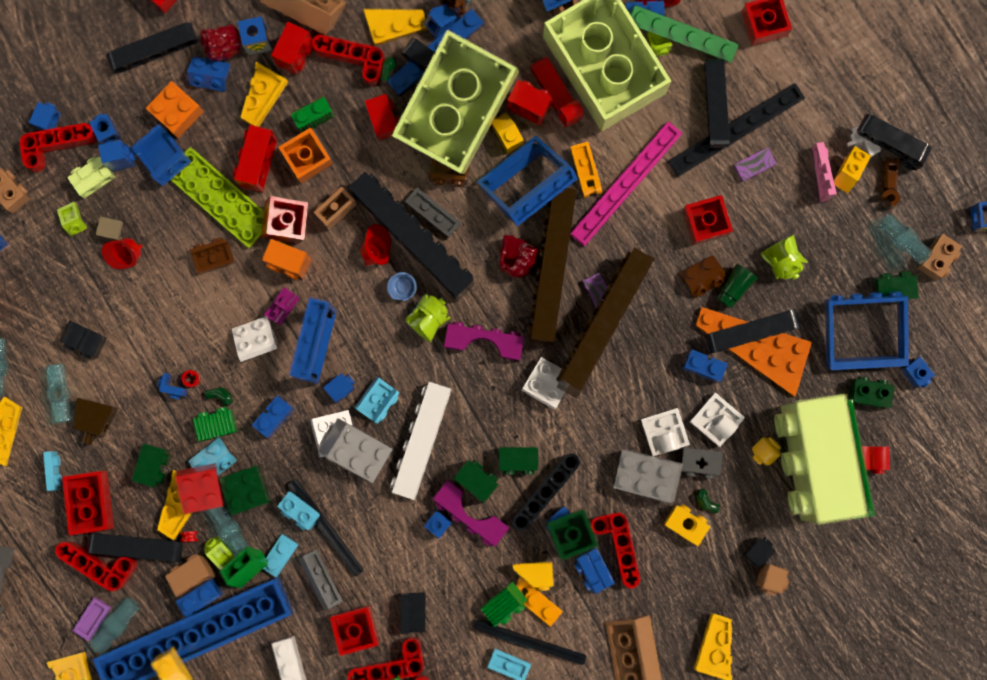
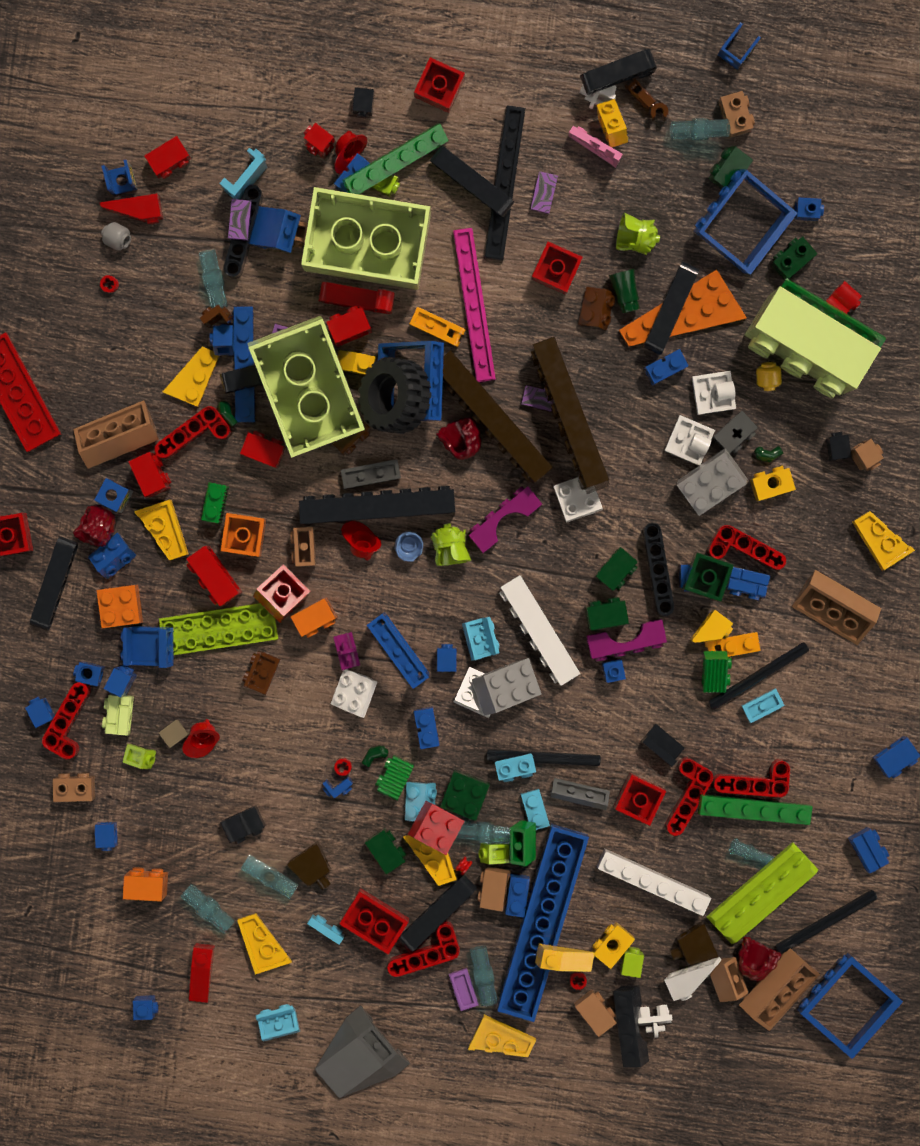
camera: 55 degrees left, 5 degrees up
(505, 174) = (377, 392): none -> black tyre

